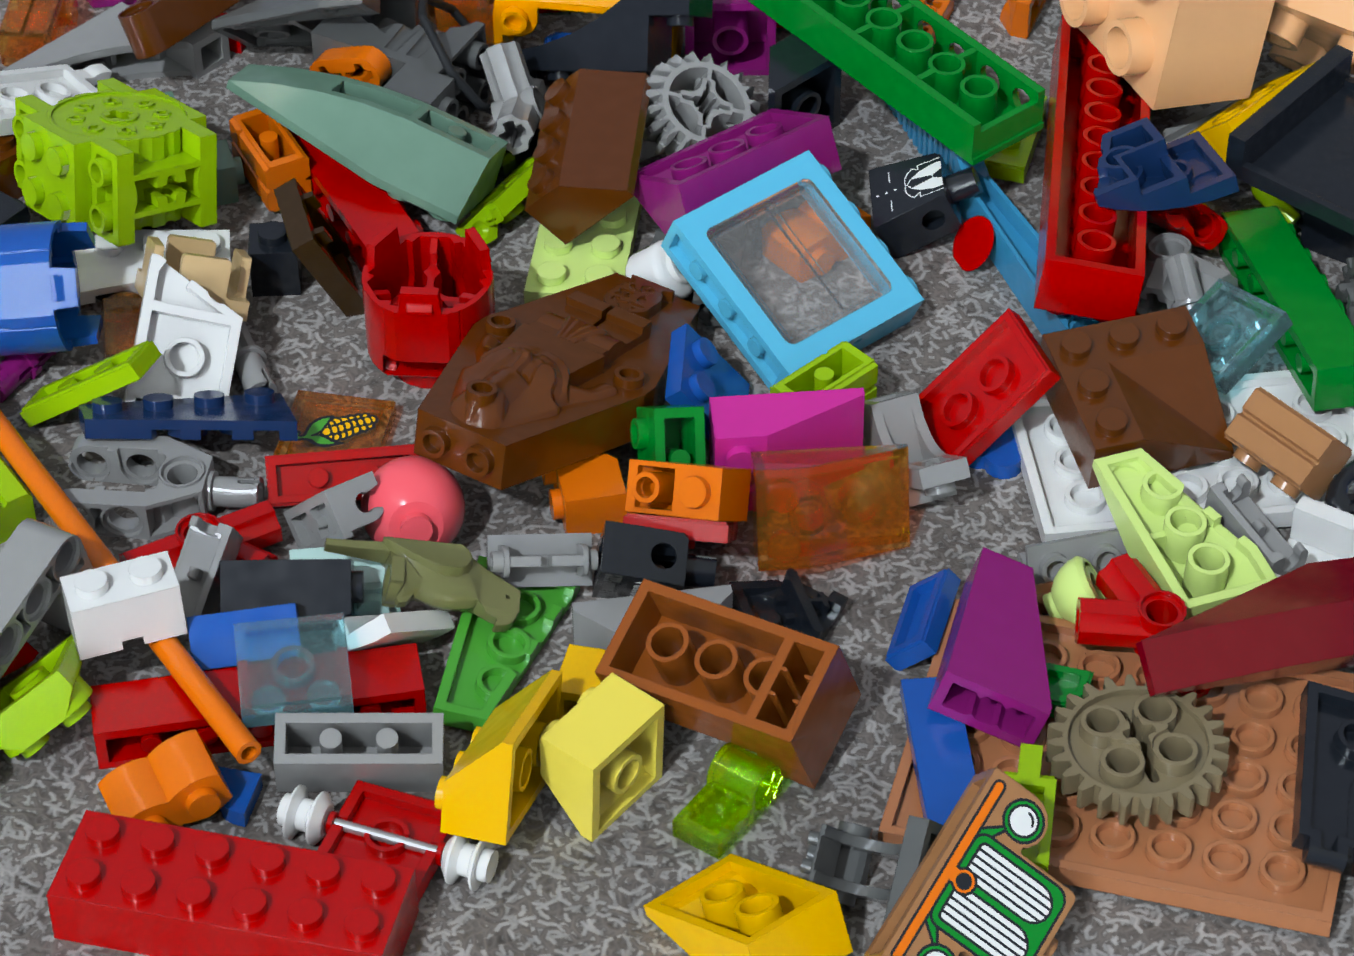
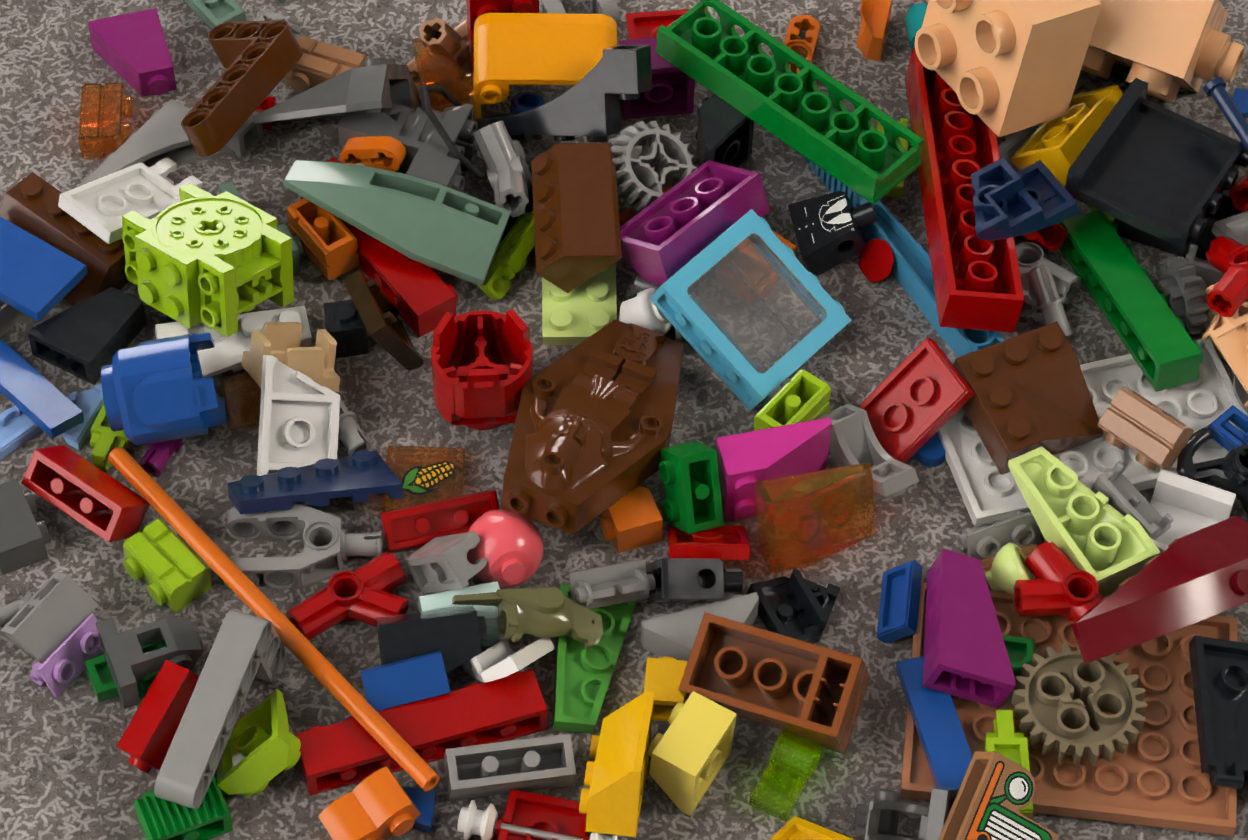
camera: 10 degrees left, 10 degrees up
(90, 383) = (232, 463): lime tile -> none
(123, 604) = (314, 671): white brick -> none
(200, 564) = (353, 627): light grey hinge -> none
(292, 667) = (450, 708): clear light blue plate -> none
(688, 490) = (712, 517): orange slope -> none
(699, 372) = (700, 411): blue plate -> none
(1236, 330) = (1090, 328): clear light blue plate -> none

